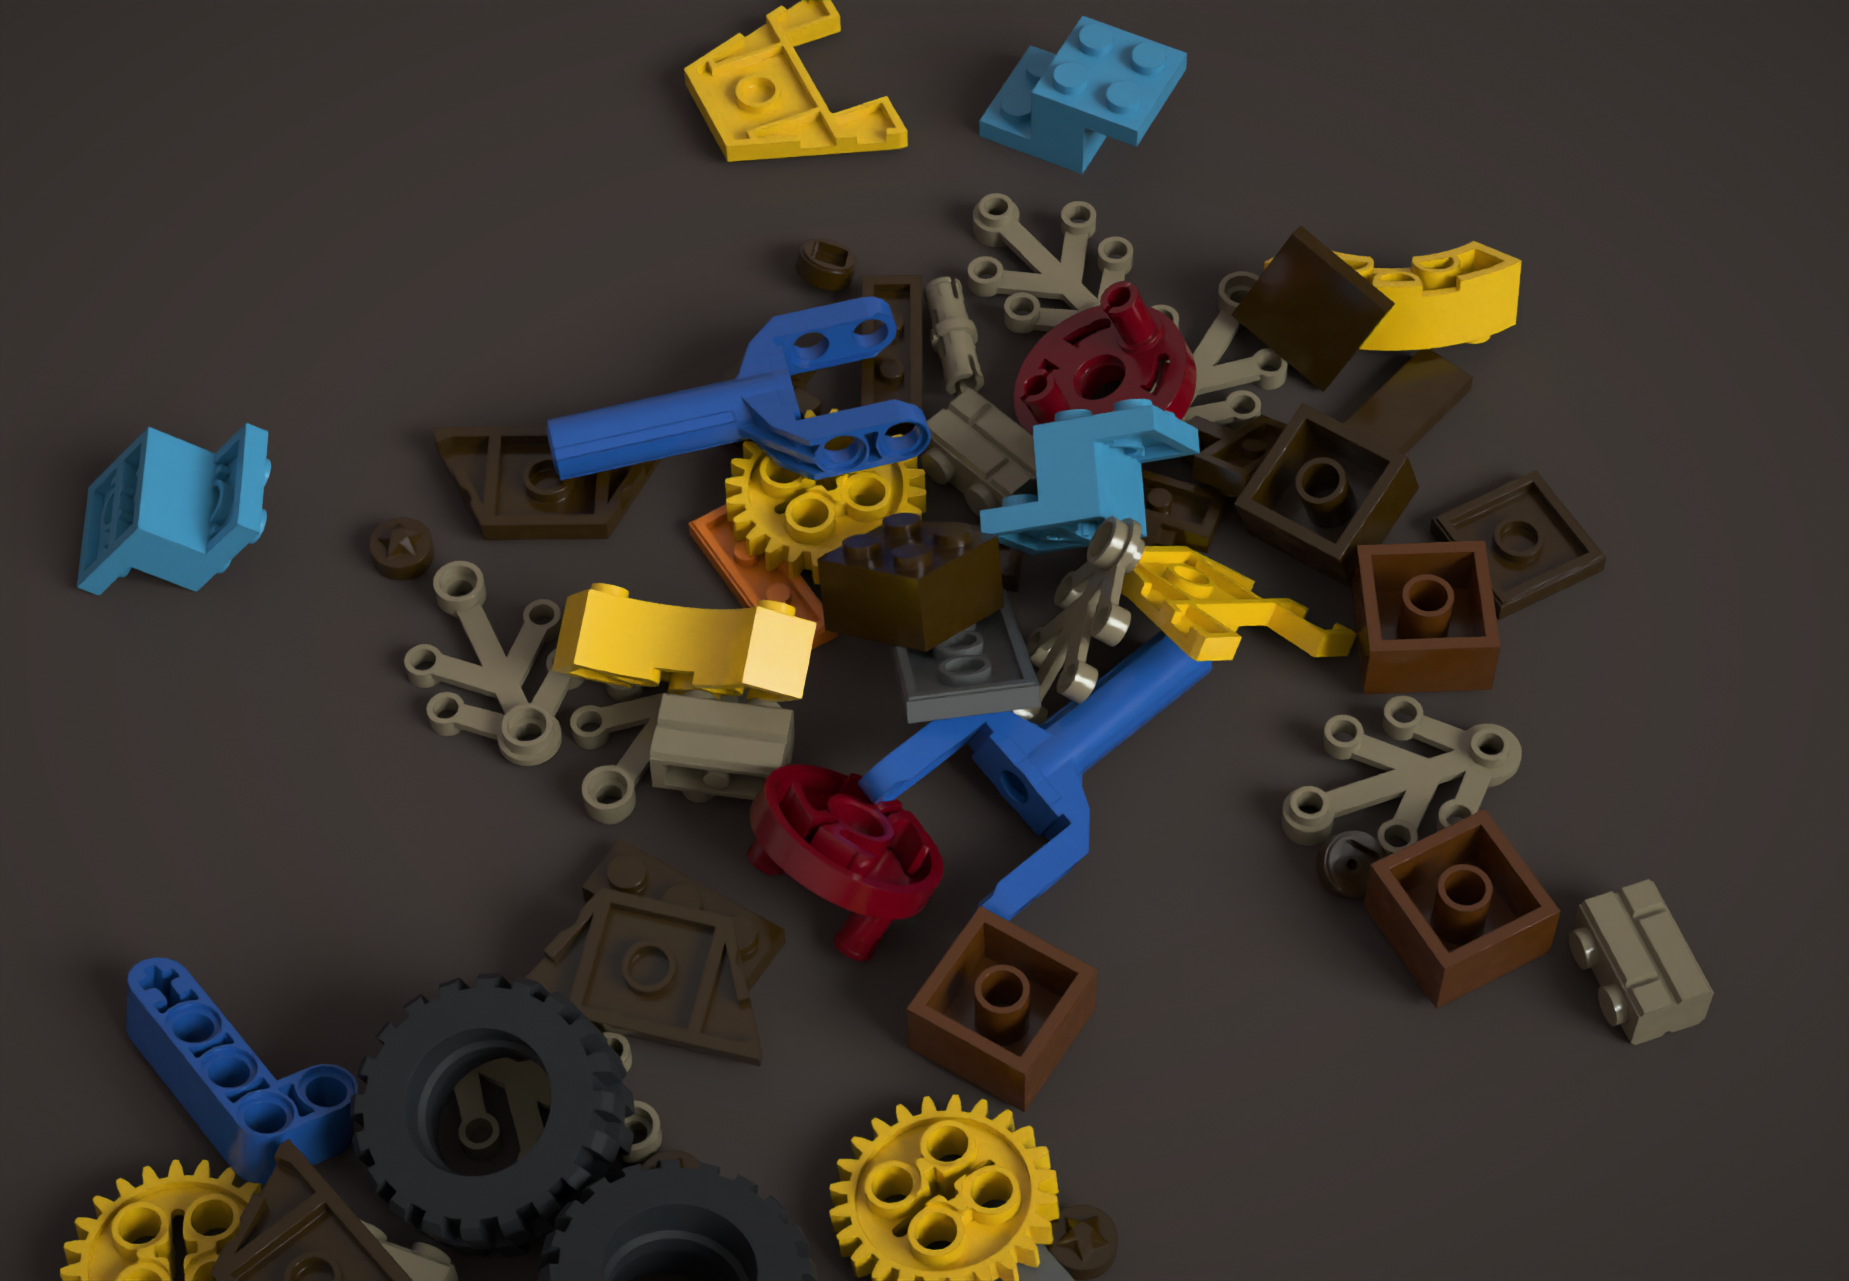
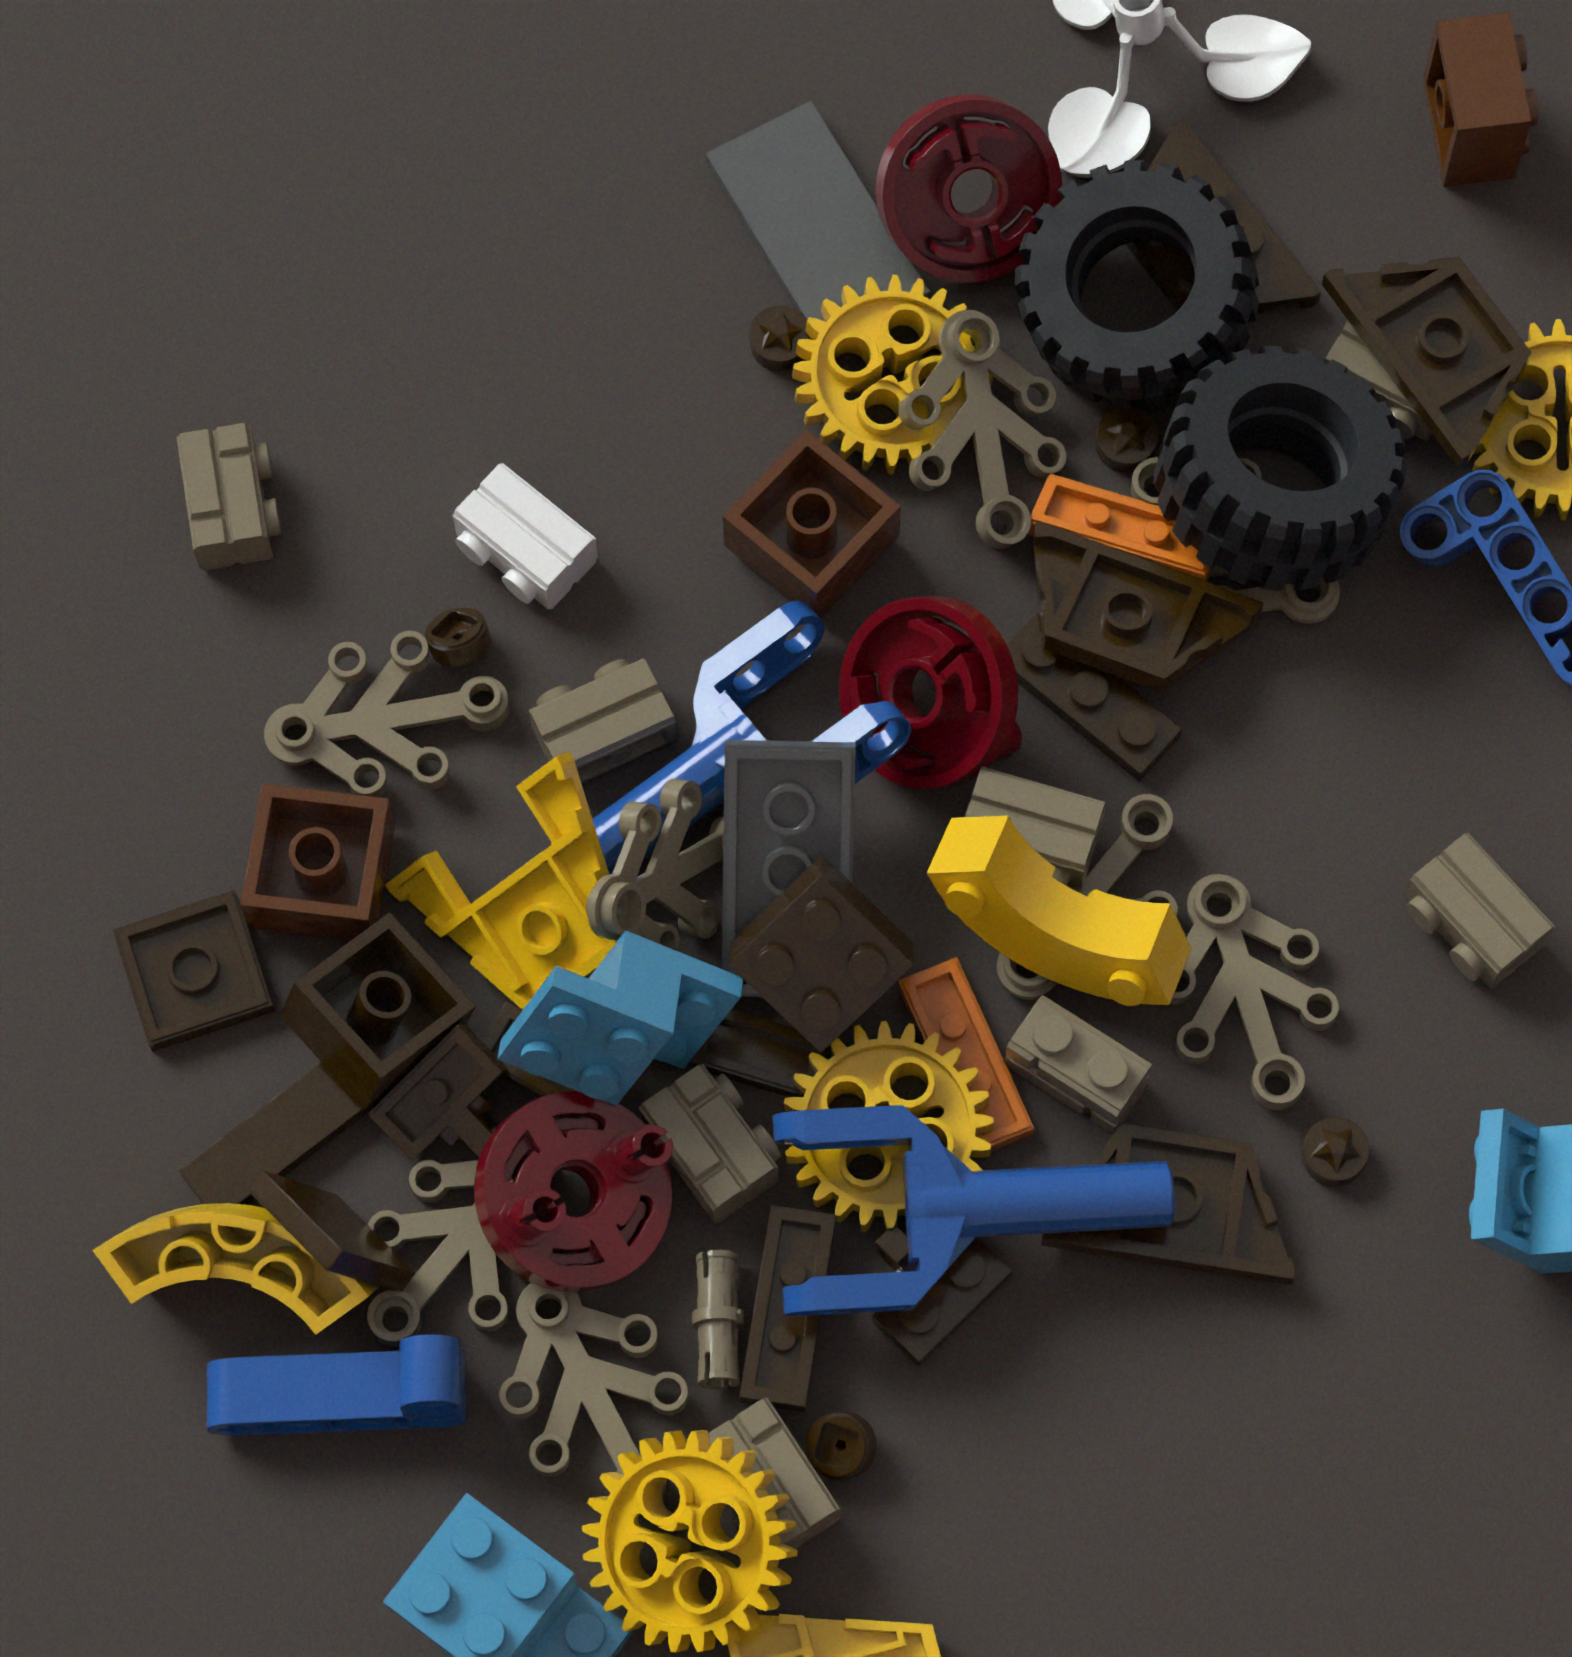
camera: 170 degrees left, 15 degrees up
(268, 755) = (1477, 912): none -> dark tan brick
(651, 559) = (1077, 1064): none -> dark tan brick
(691, 1081) = (1116, 522): none -> orange tile
(801, 1067) = (984, 420): none -> dark tan plant
(884, 222) = (810, 1502): none -> dark tan brick
(941, 154) = (706, 1484): none -> yellow gear
(1179, 799) = (605, 720): none -> dark tan brick
(1212, 240) = (340, 1391): none -> blue beam
(1309, 967) = (523, 538): none -> white brick
(1461, 908) = (374, 556): reddish brown brick -> none

